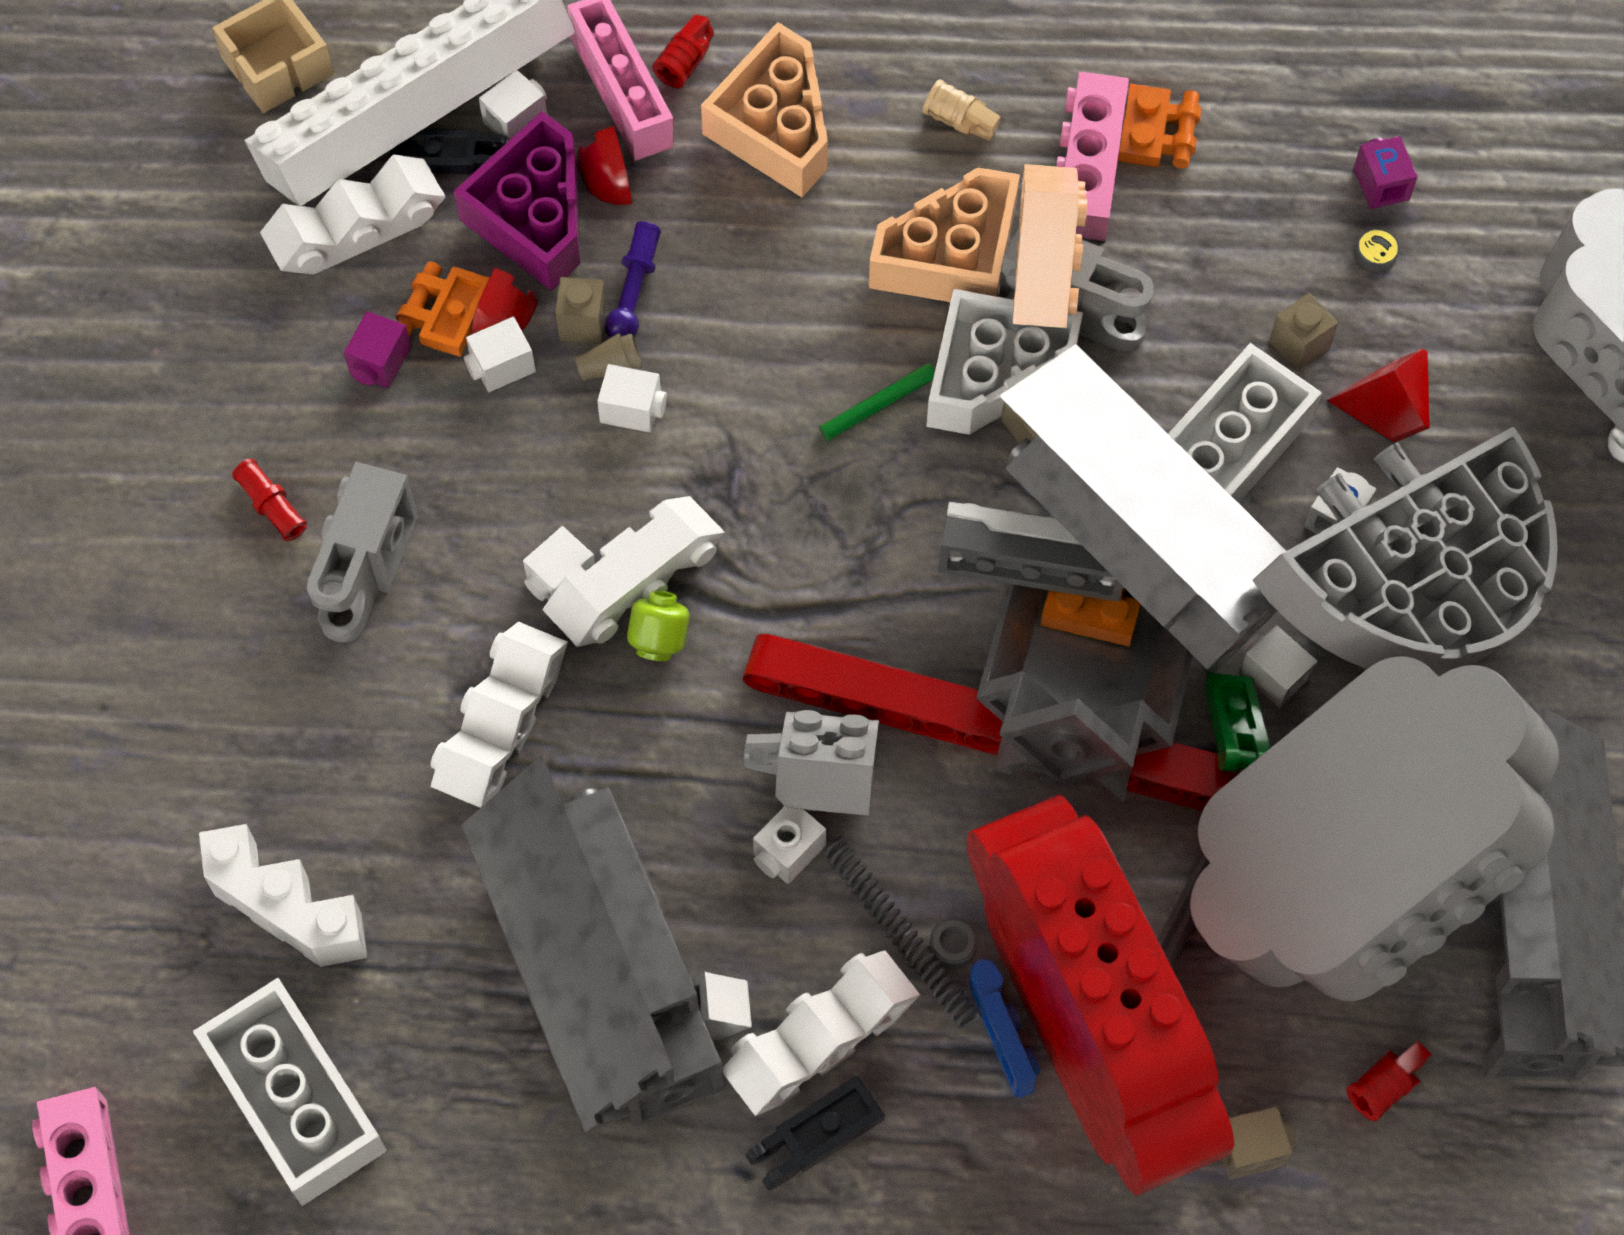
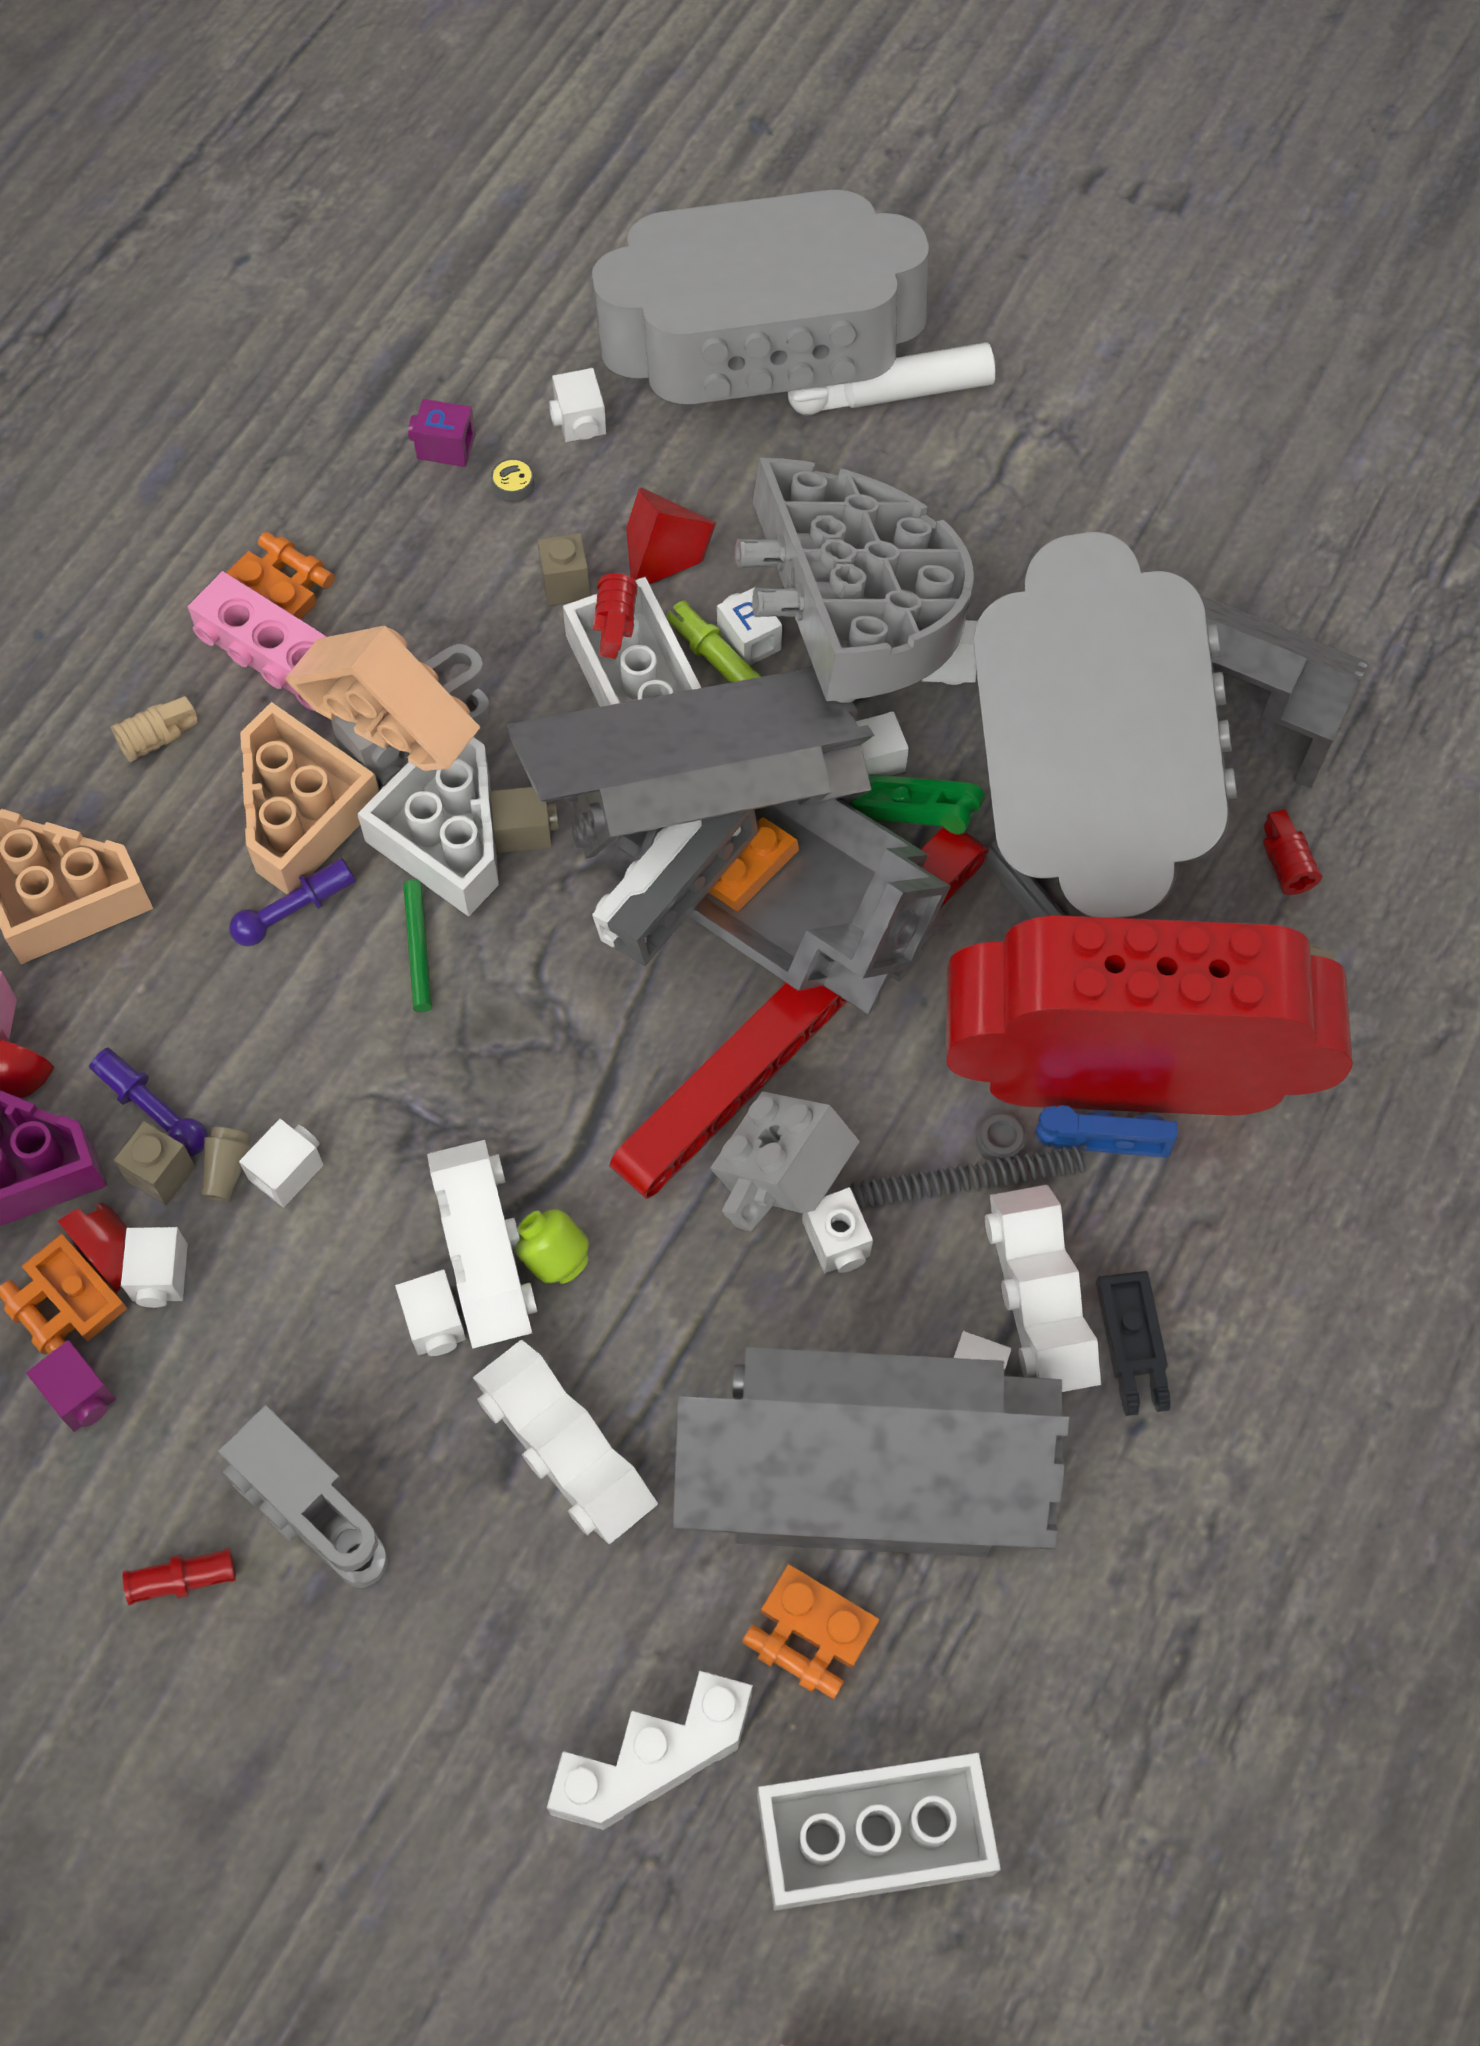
camera: 65 degrees left, 0 degrees up
(451, 980) = (819, 1618): none -> orange plate
(827, 273) = (250, 926): none -> dark purple pin
(1260, 382) = (614, 611): none -> red hinge
(1304, 481) = (706, 641): none -> lime pin
(1486, 261) = (577, 405): none -> white brick

